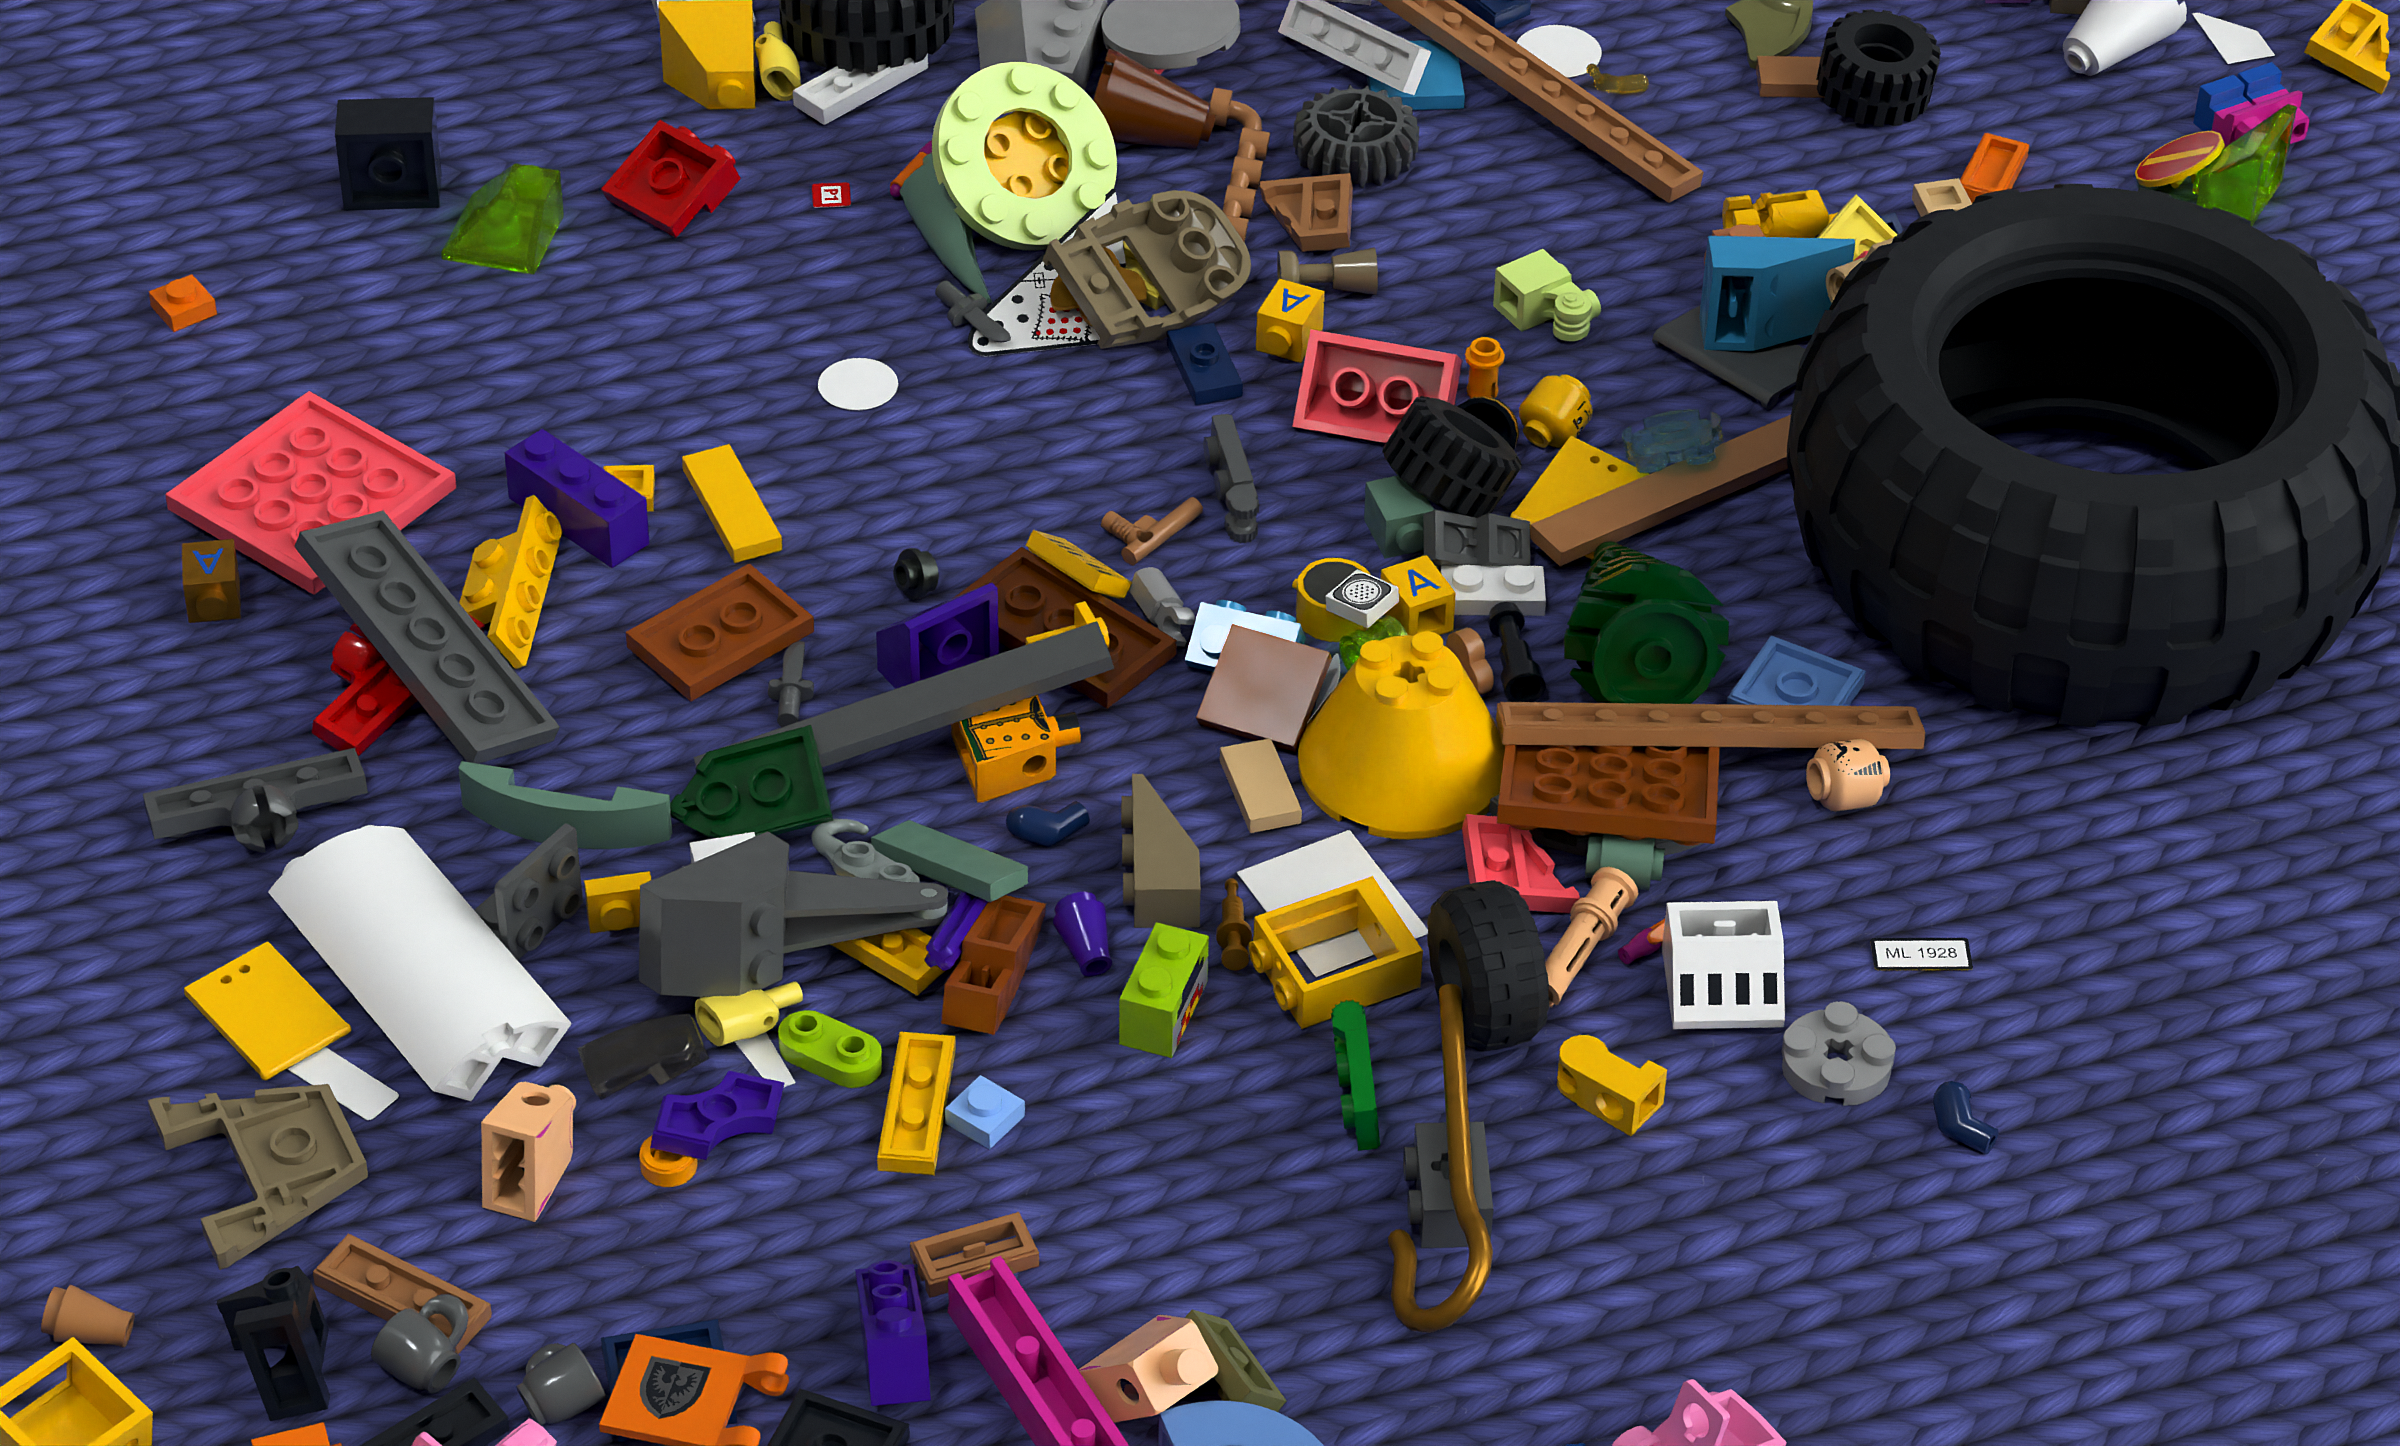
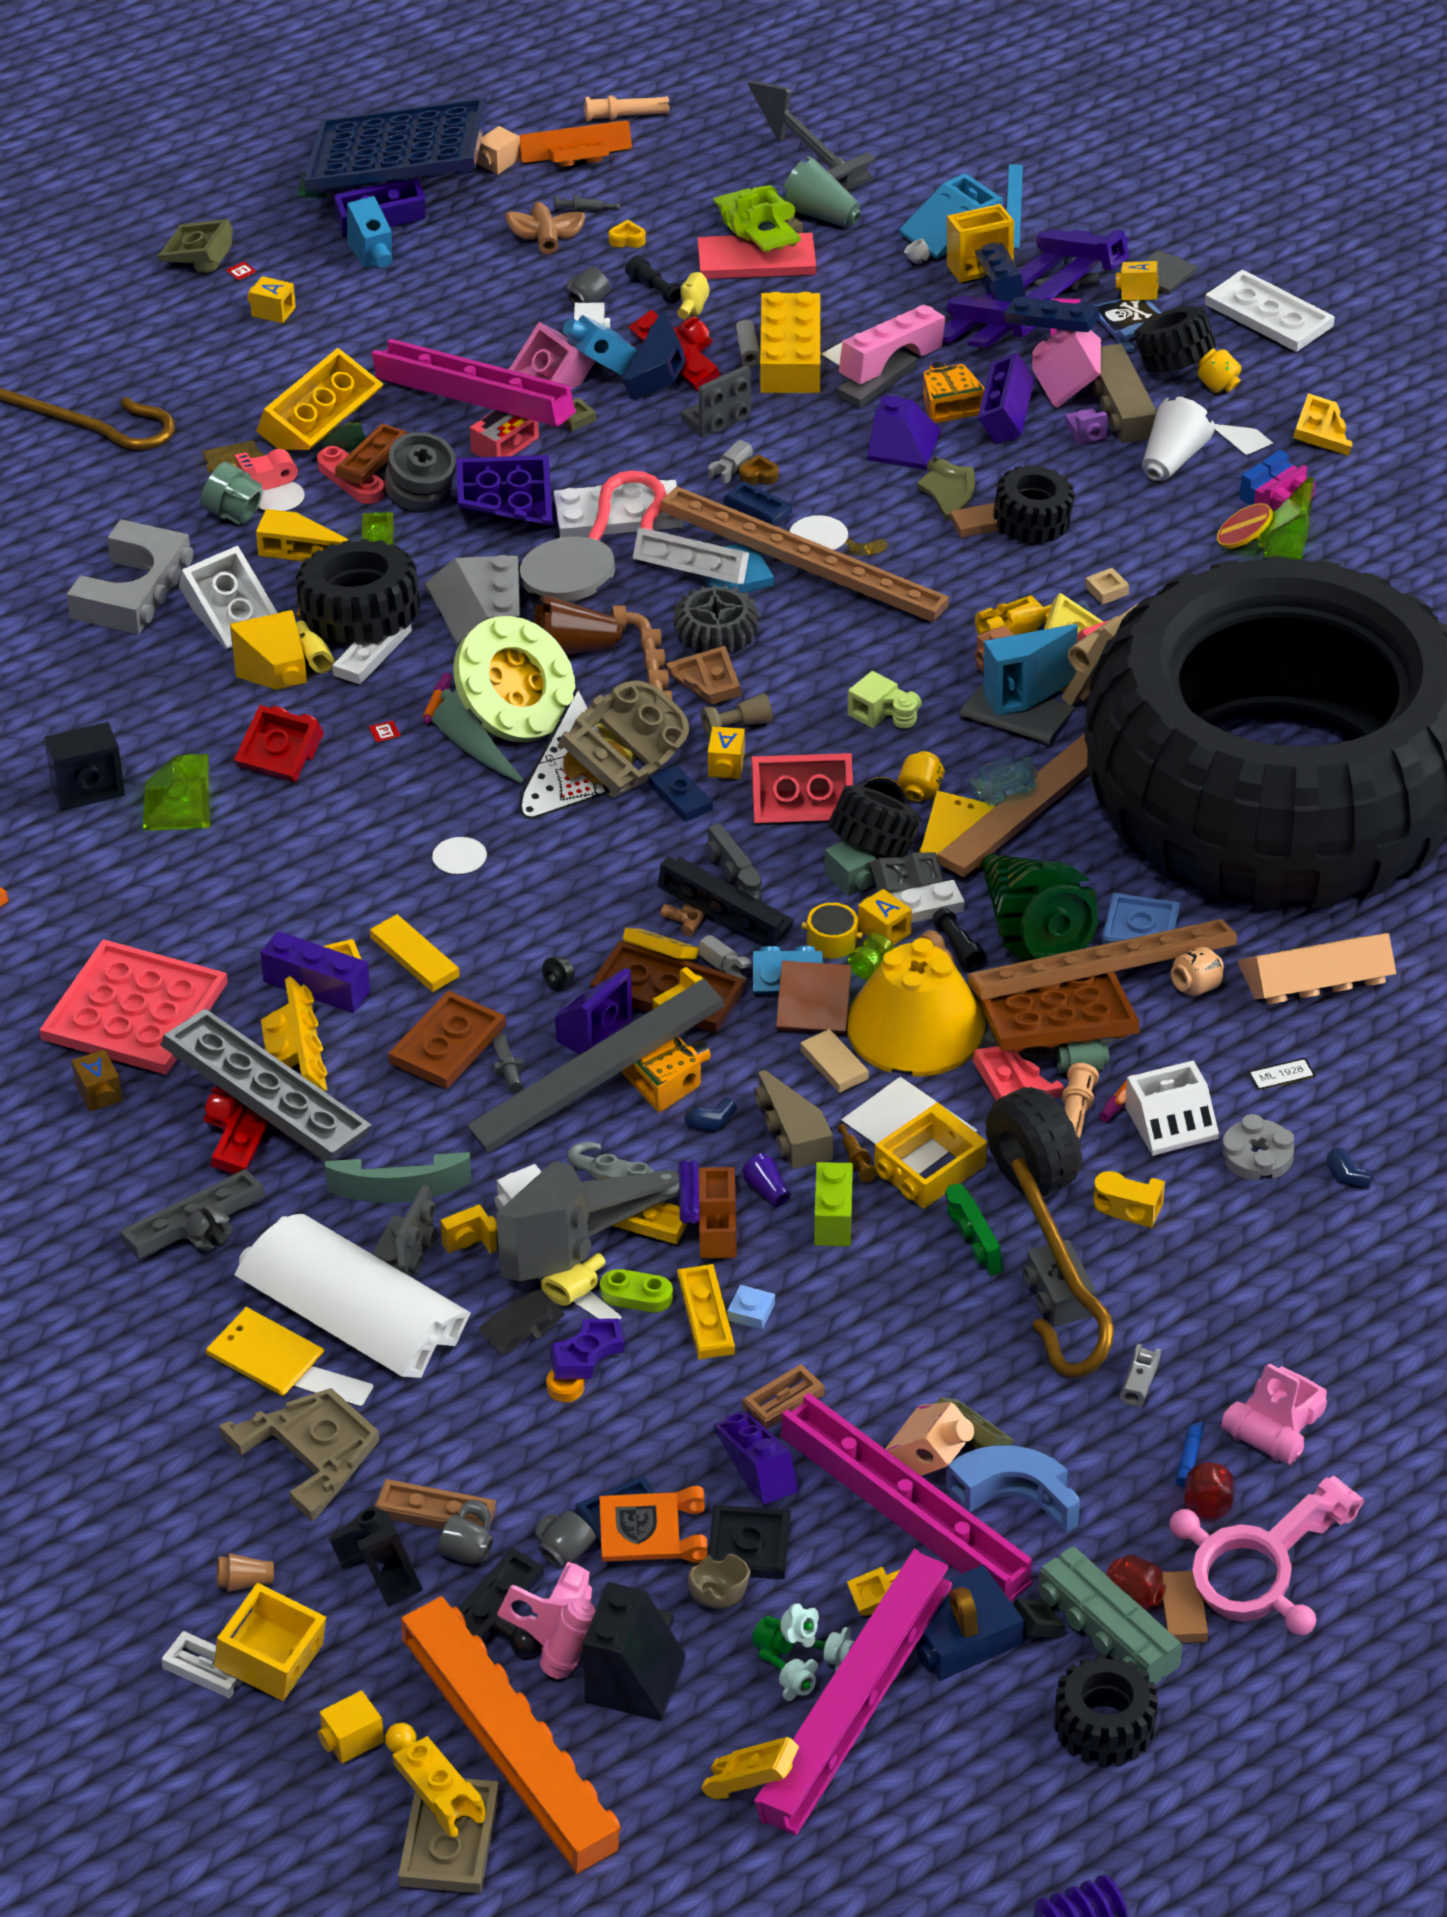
camera: 15 degrees left, 0 degrees up
(527, 1131) = (479, 1383): light nougat torso -> none
(757, 787) = (521, 1135): dark green tile -> none
(951, 860) = (665, 1153): sand green tile -> none
(970, 310) = (513, 790): dark grey piece -> none
(1194, 525) = (723, 901): none -> black fence
(1329, 684) = (856, 989): white sticker -> none
(1362, 598) = (856, 926): white tile -> none
(1484, 361) = (864, 752): light orange pin -> none
(1516, 1351) = (1140, 1376): none -> light grey bar
(1994, 165) = (1129, 556): orange tile -> none
(2036, 808) = (1318, 967): none -> light nougat slope

